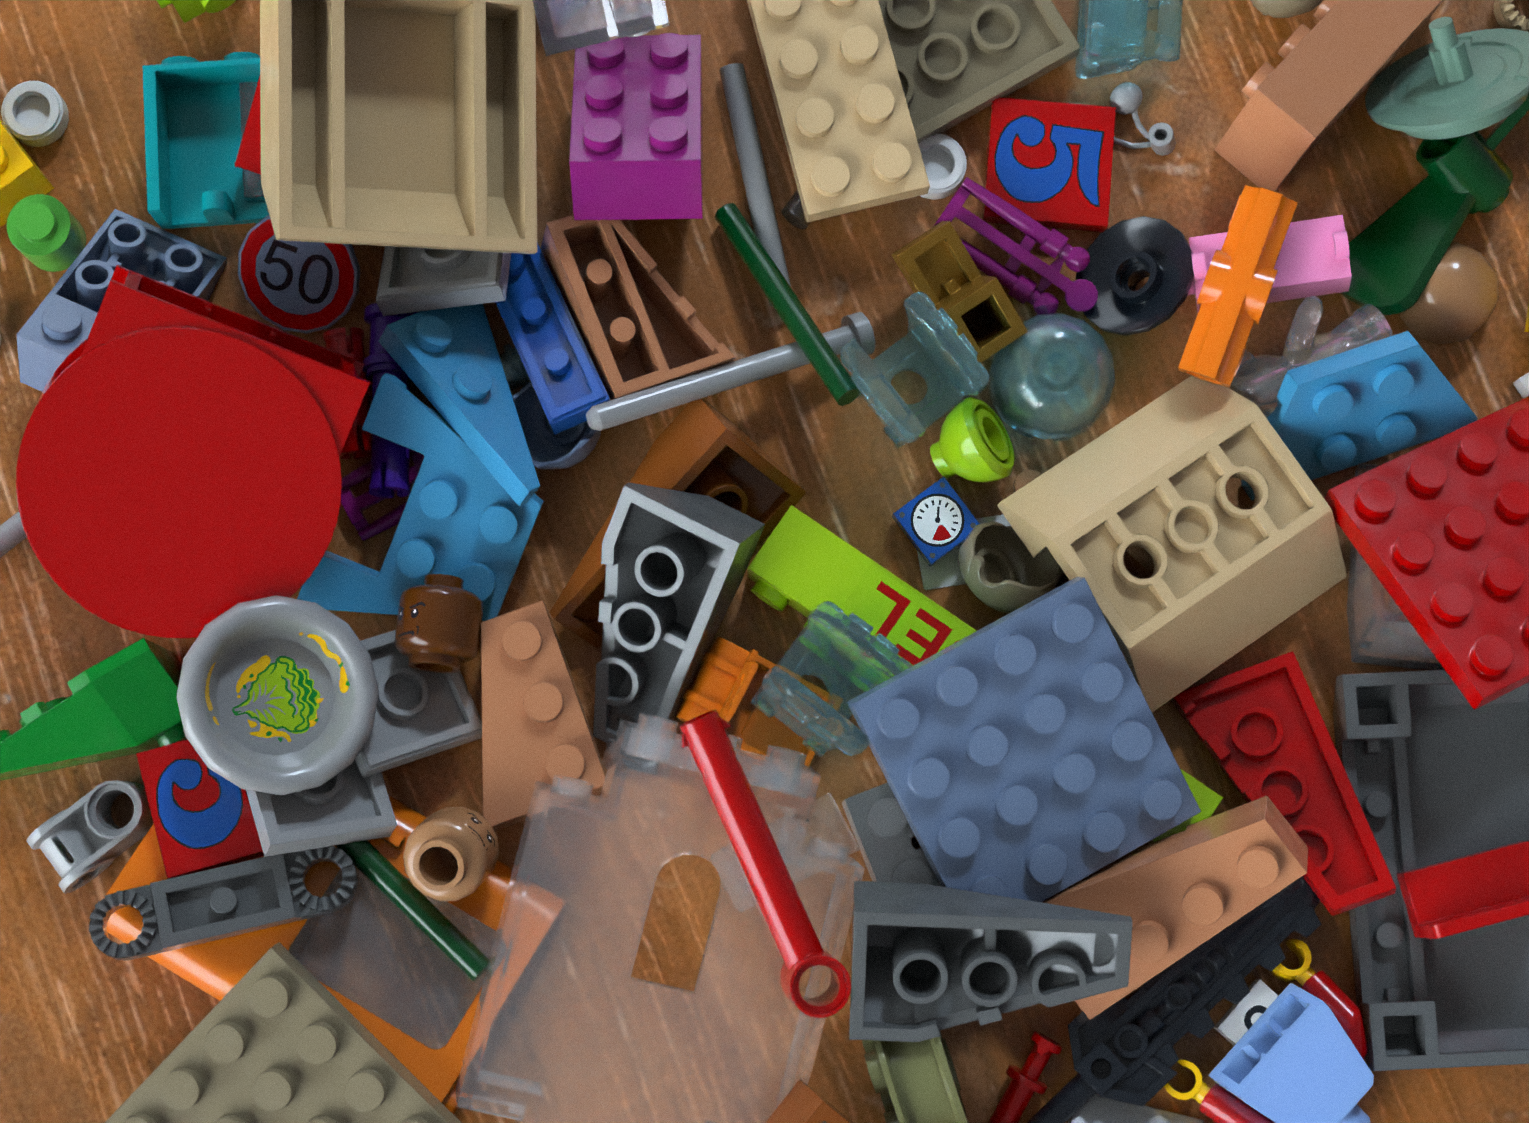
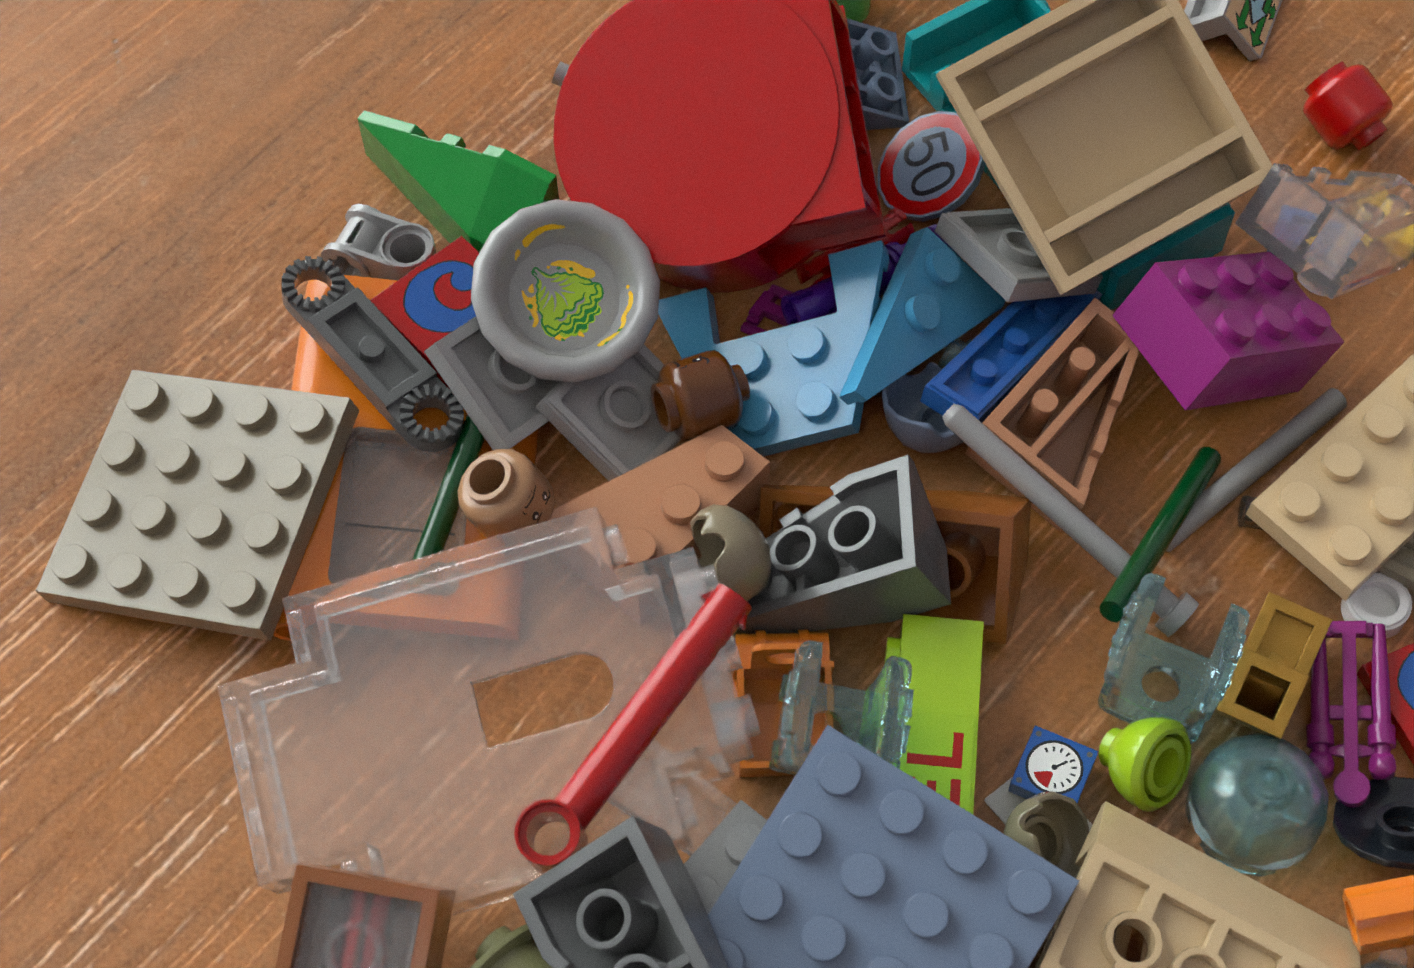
camera: 65 degrees right, 20 degrees down
(625, 679) = (734, 548): none -> dark tan hair

